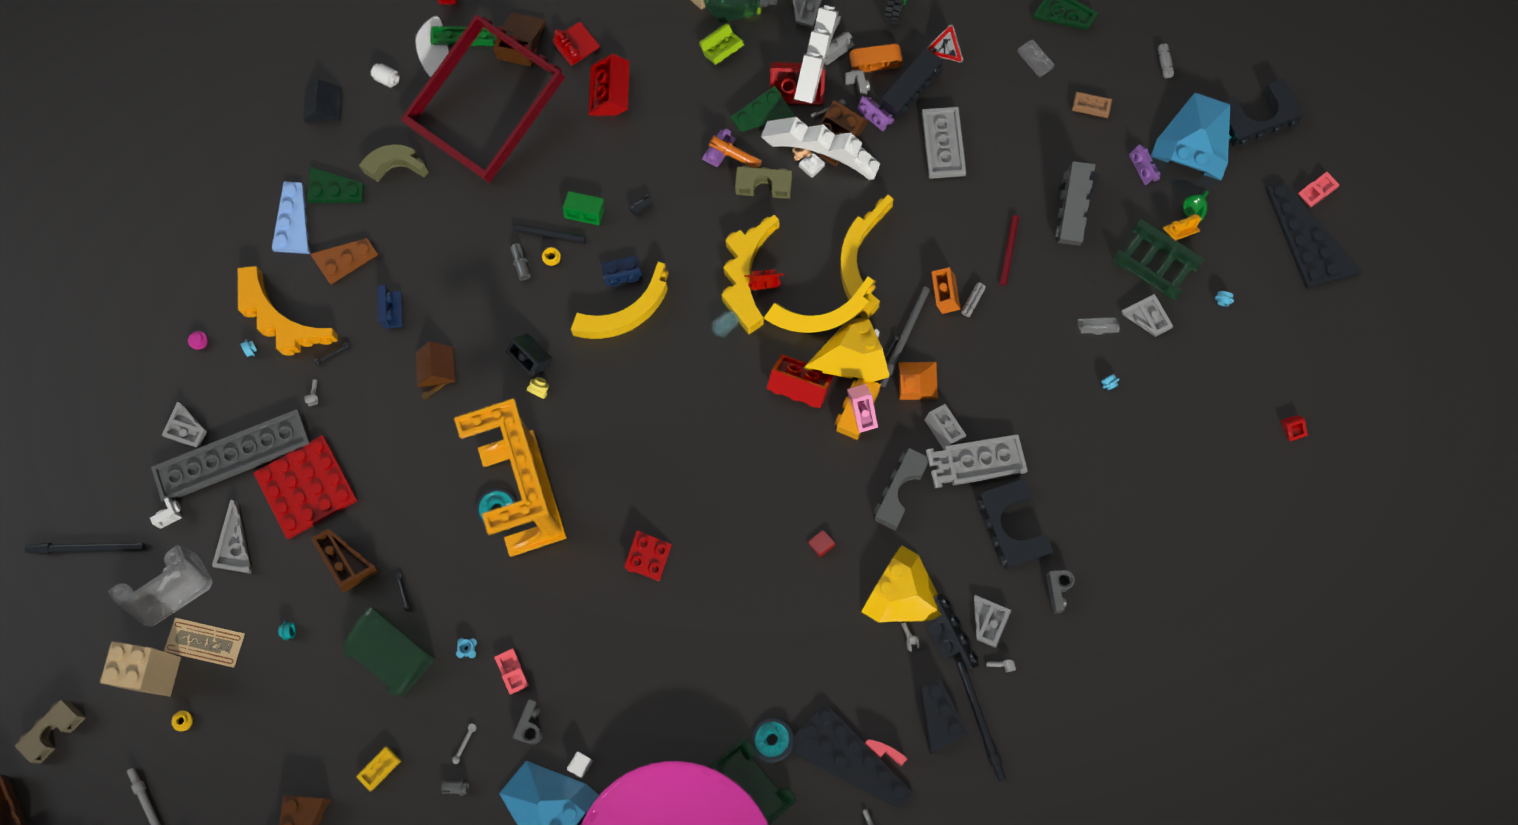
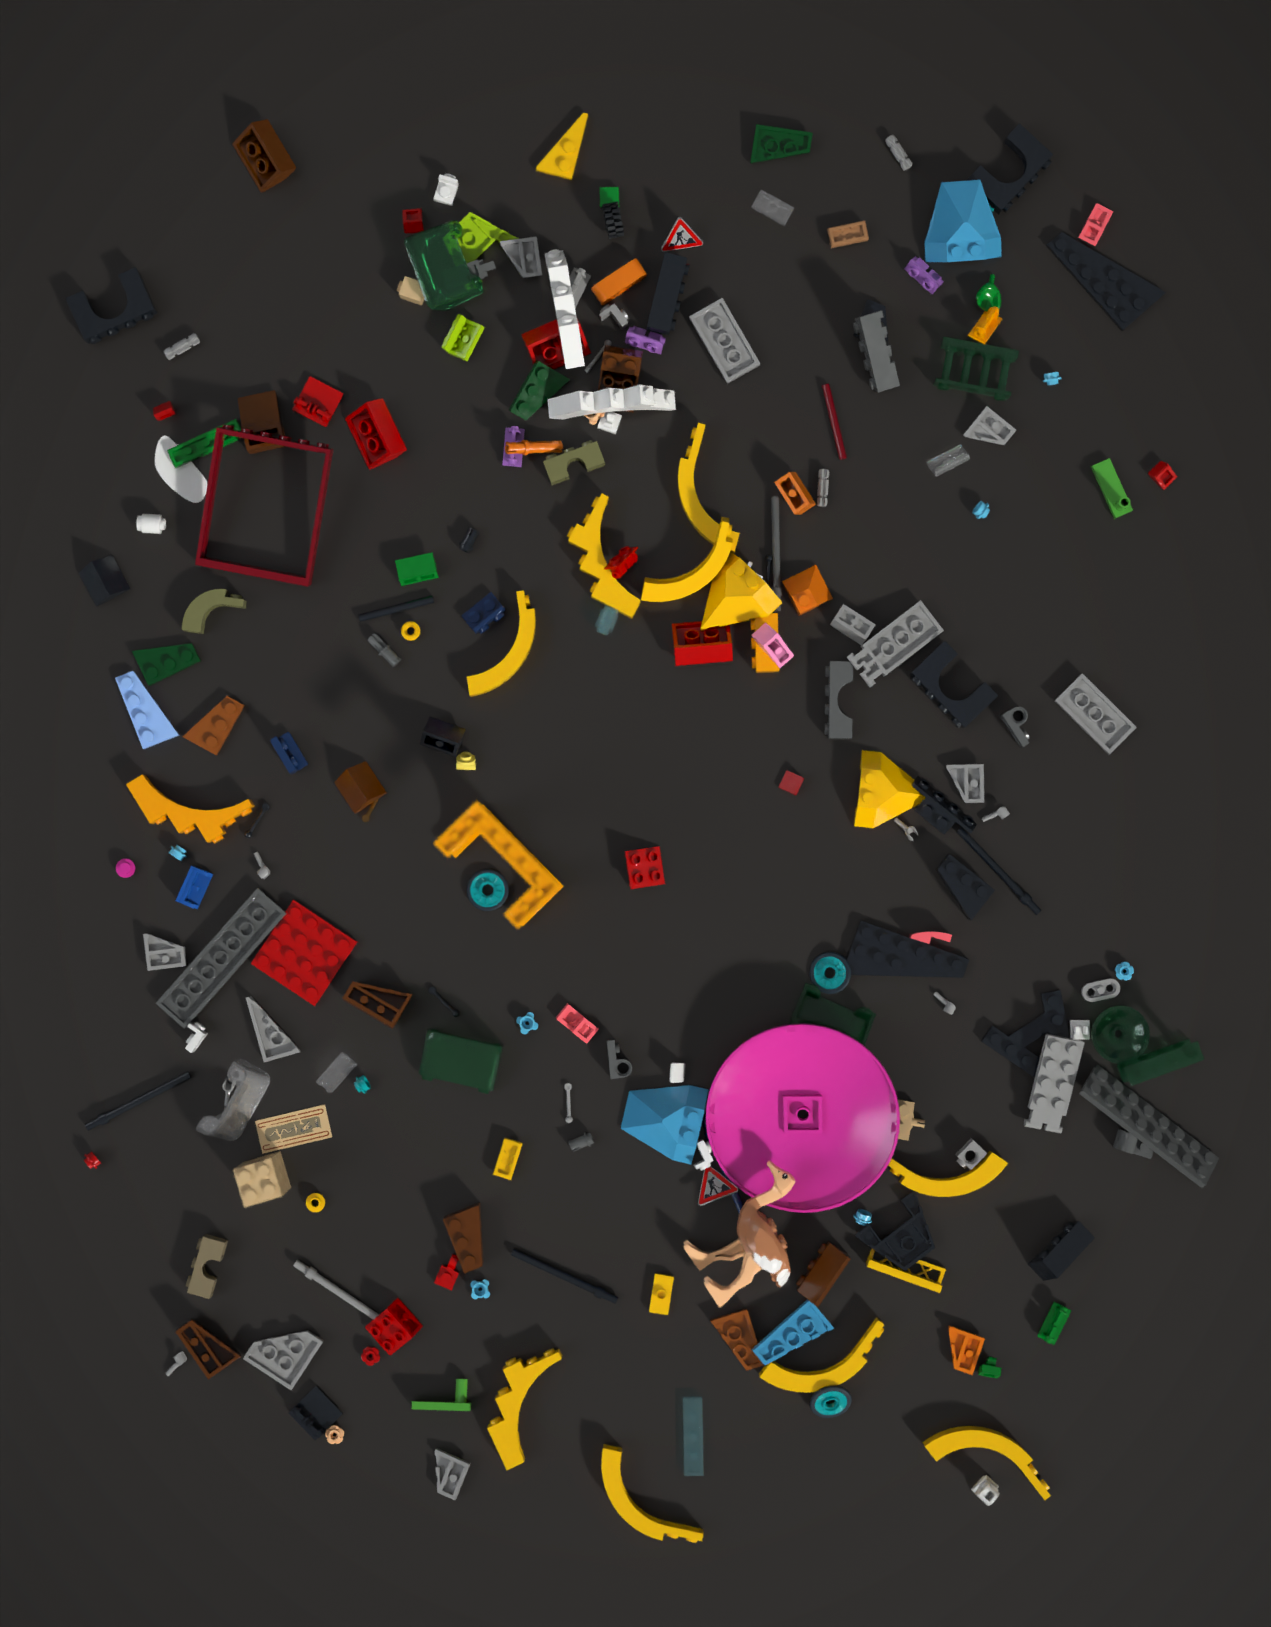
camera: 30 degrees left, 15 degrees up
(11, 580) = (91, 1160): none -> red plate
(244, 383) = (194, 887): none -> blue hinge
(270, 607) = (336, 1072): none -> clear hinge
(1139, 614) = (1095, 714): none -> light grey plate
(1241, 418) = (1112, 488): none -> bright green piece

